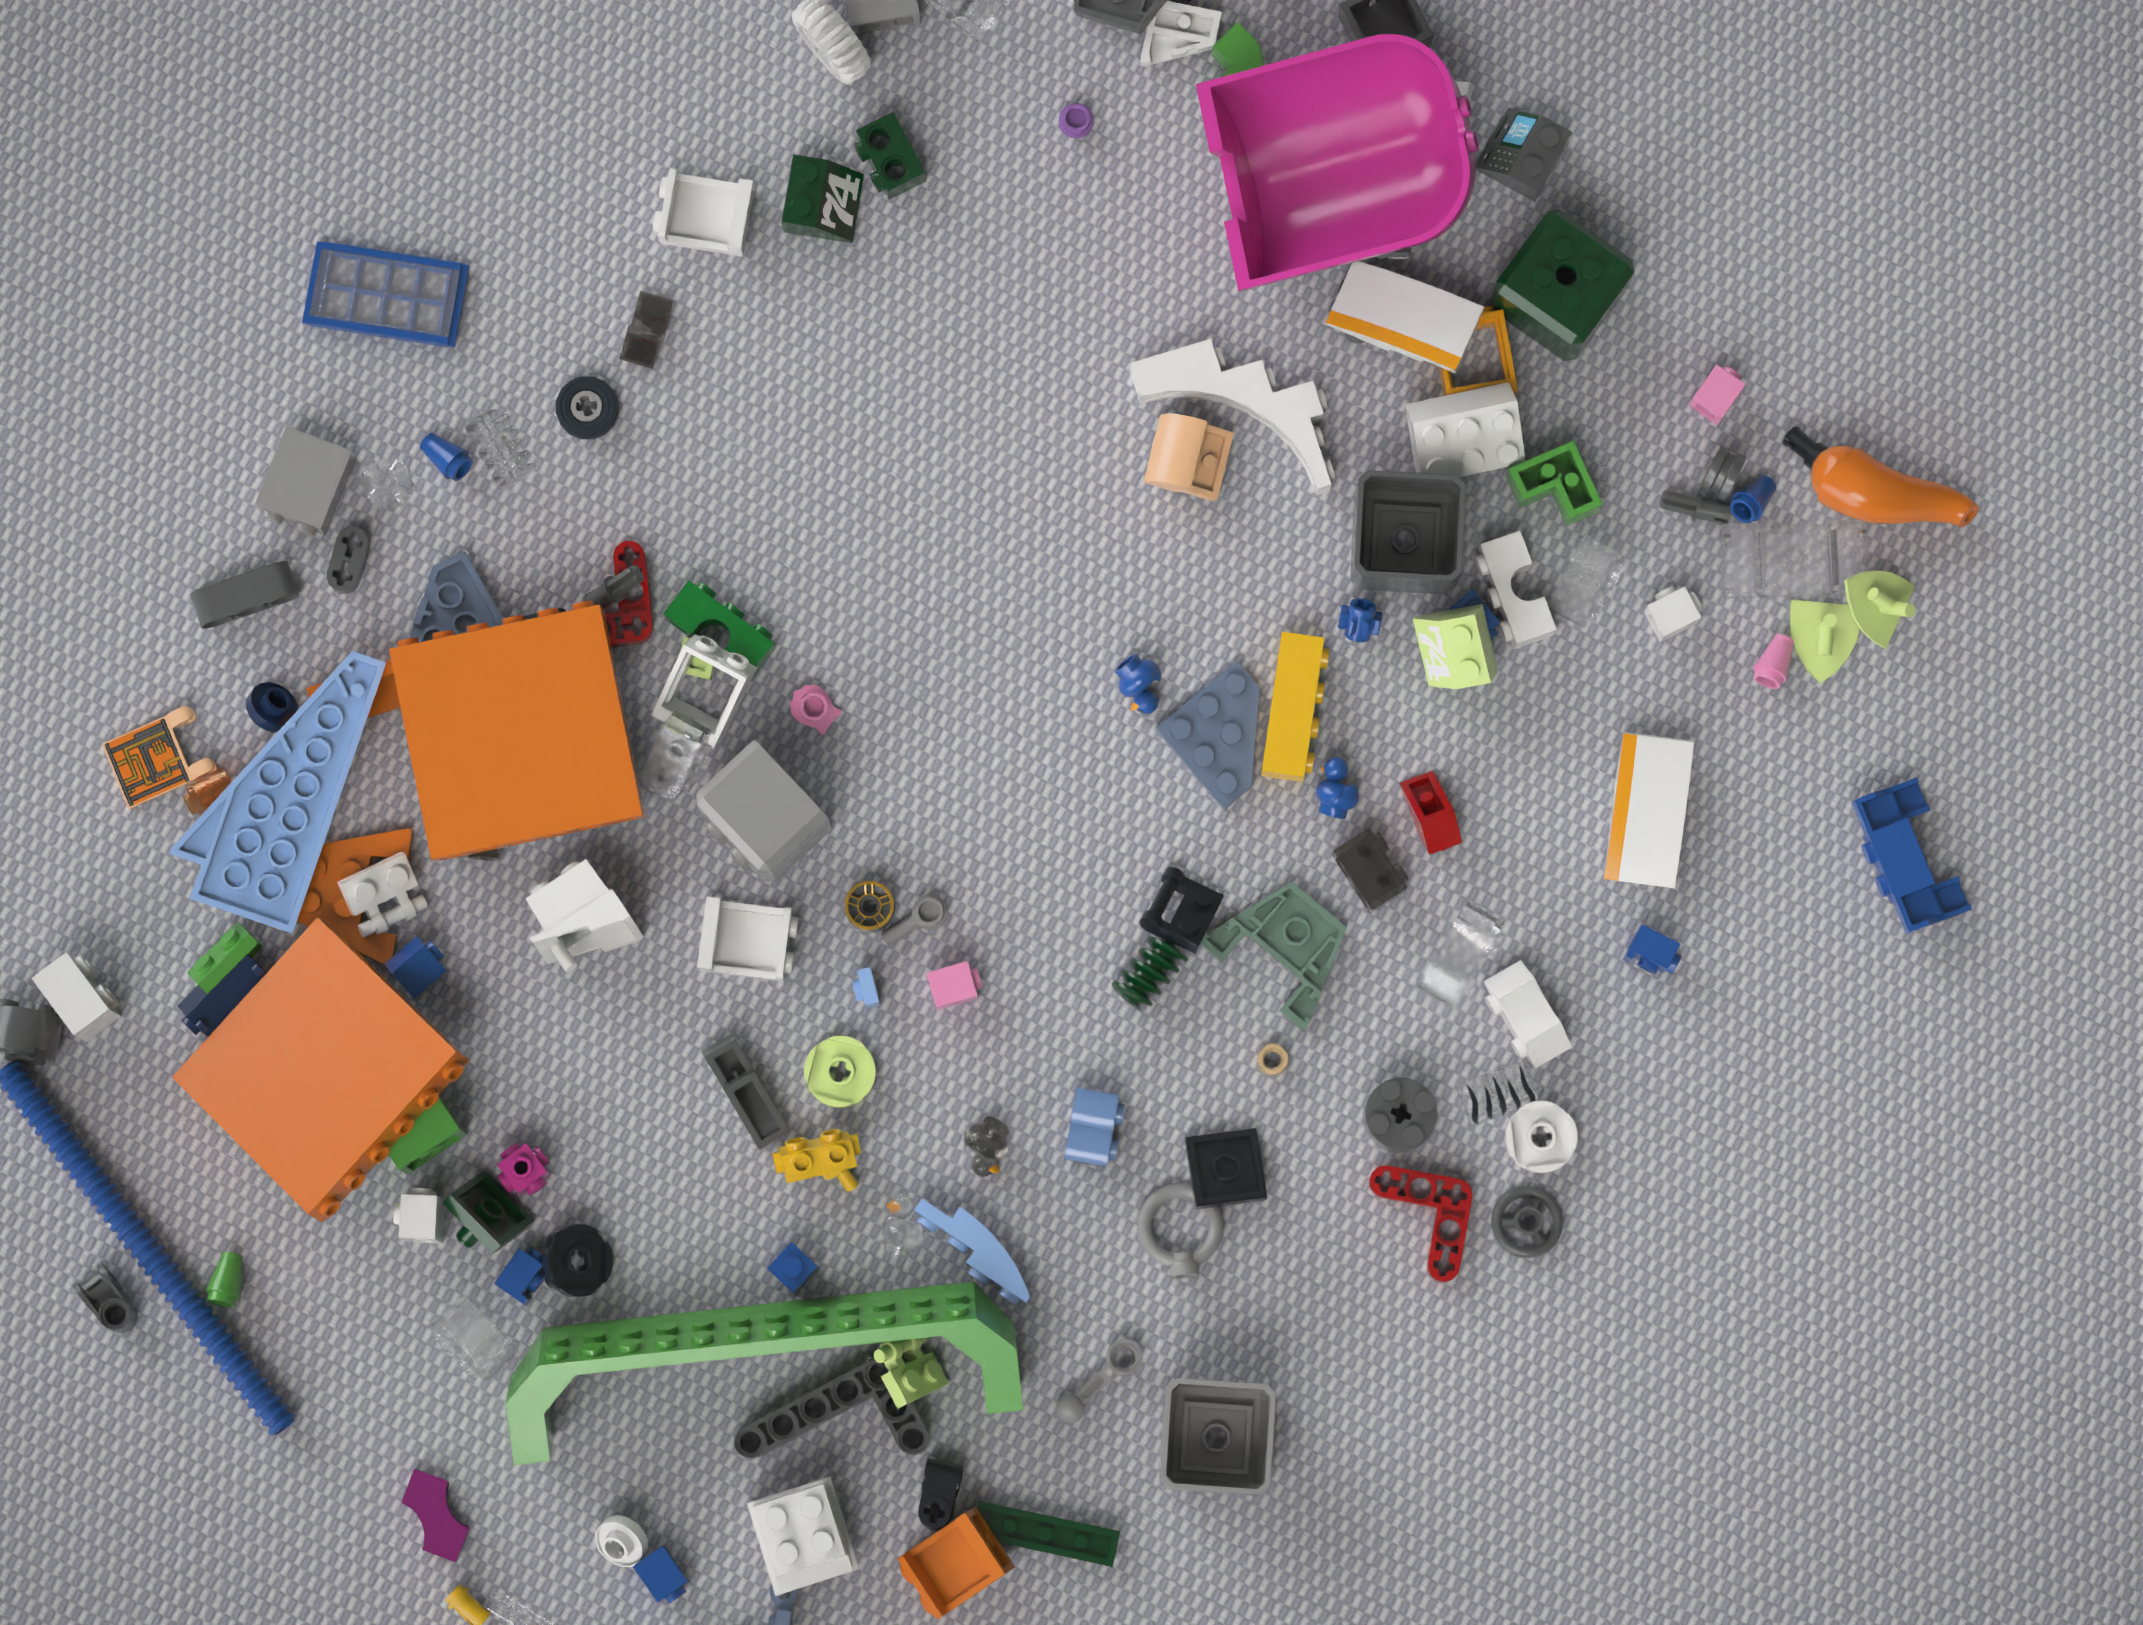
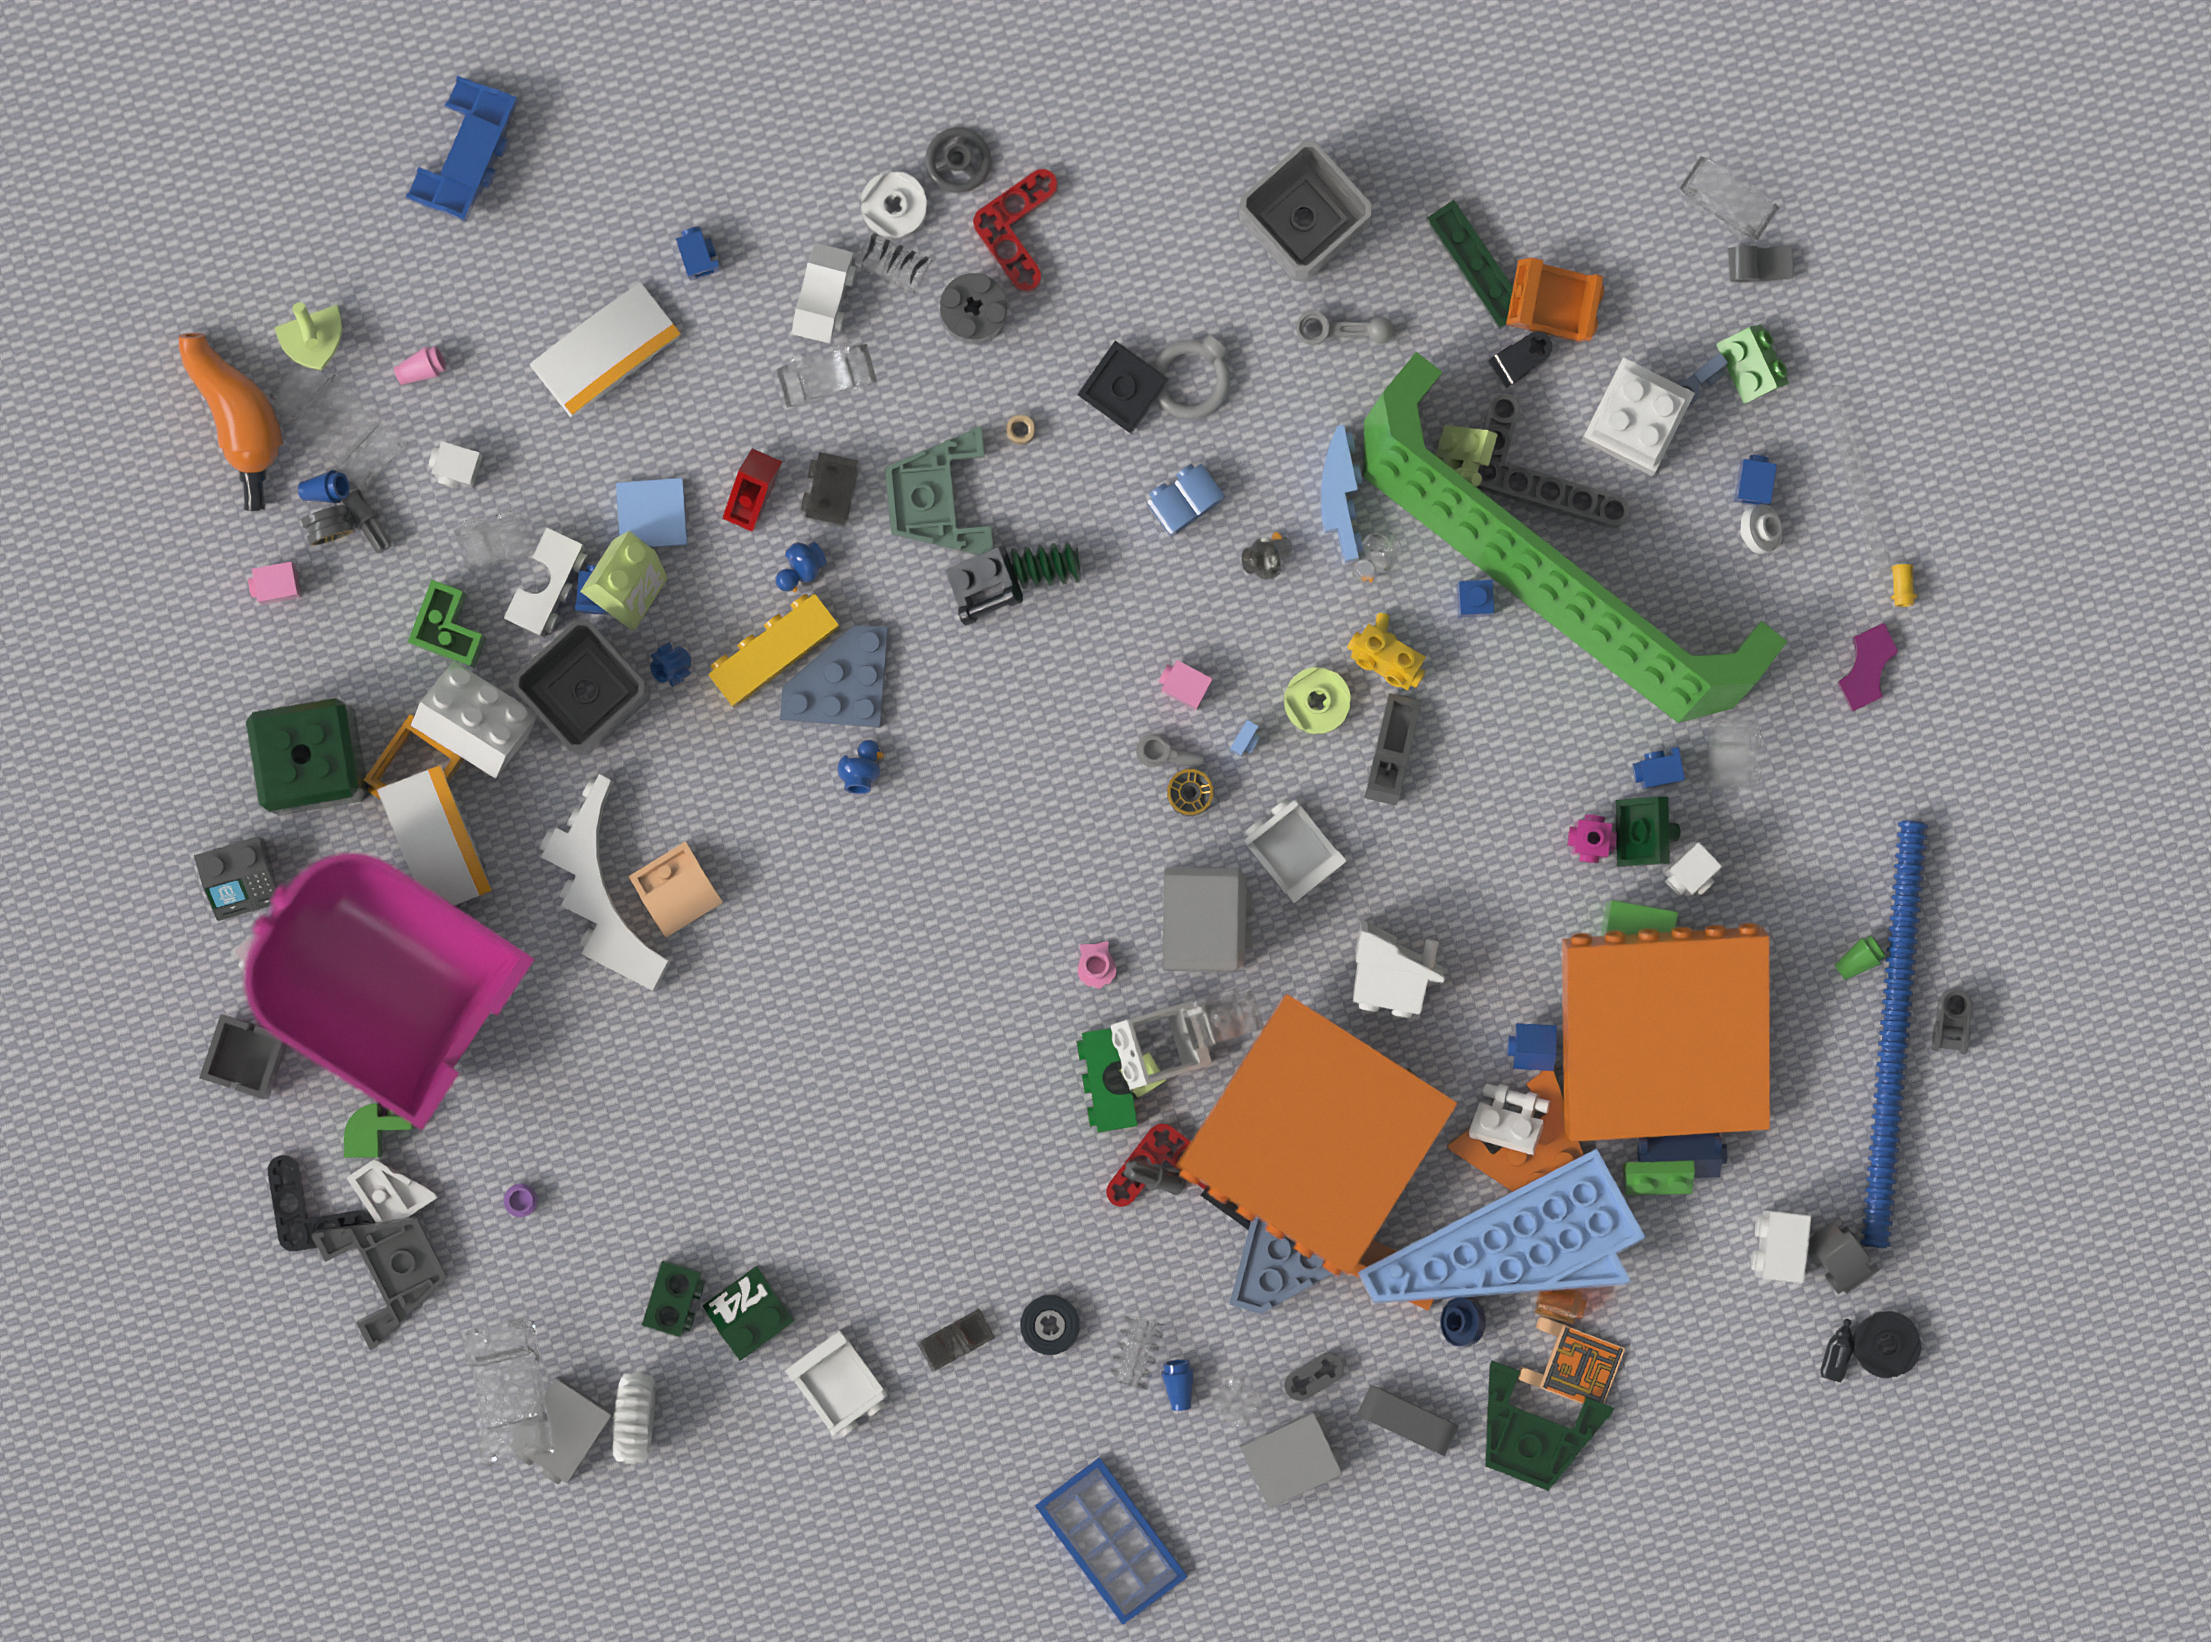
camera: 135 degrees left, 5 degrees up
(131, 666) = (1528, 1444): none -> dark green wing
(557, 1260) = (1621, 759): black plate -> none
(1489, 722) = (653, 511): none -> light blue tile
(1822, 636) = (370, 354): yellowish green shield -> none

